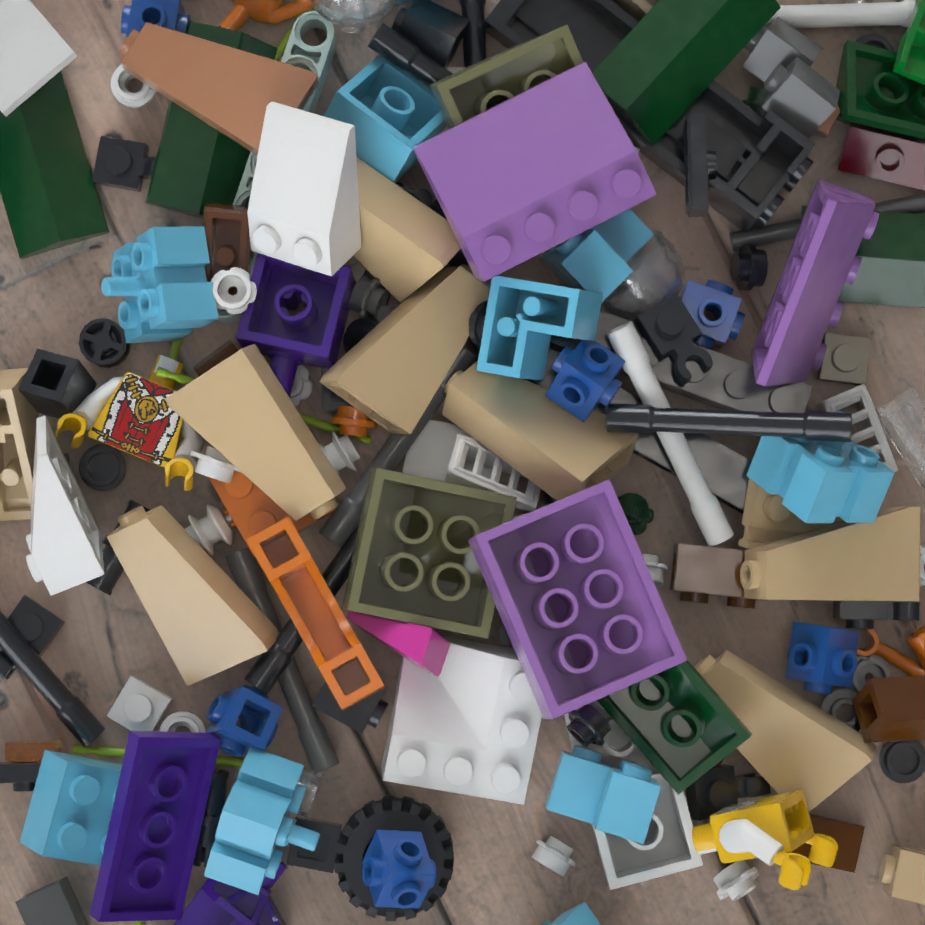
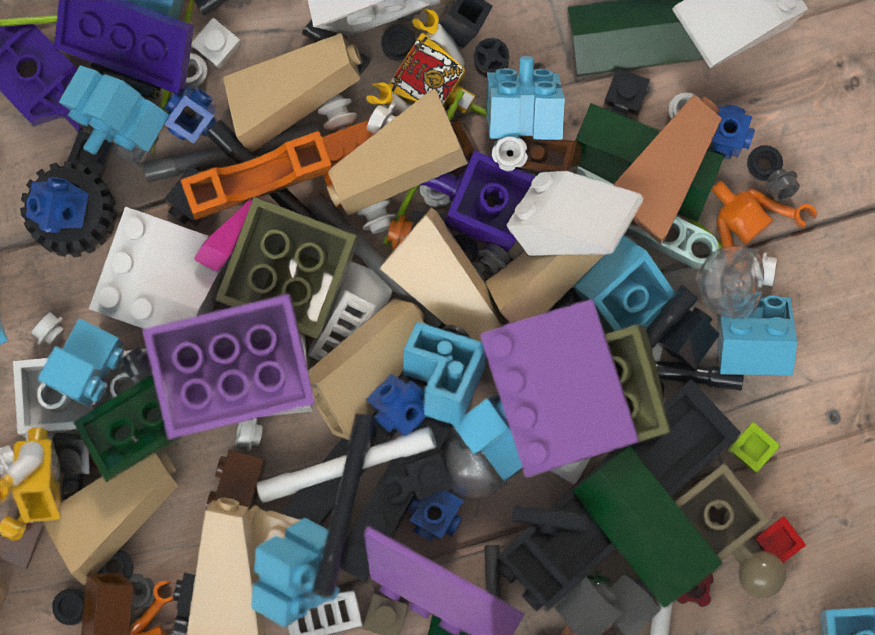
camera: 100 degrees right, 5 degrees down
(636, 511) = (294, 429): clear green plate -> none
(749, 267) = (468, 553): black plate -> none
(822, 656) = (159, 555): blue brick -> none

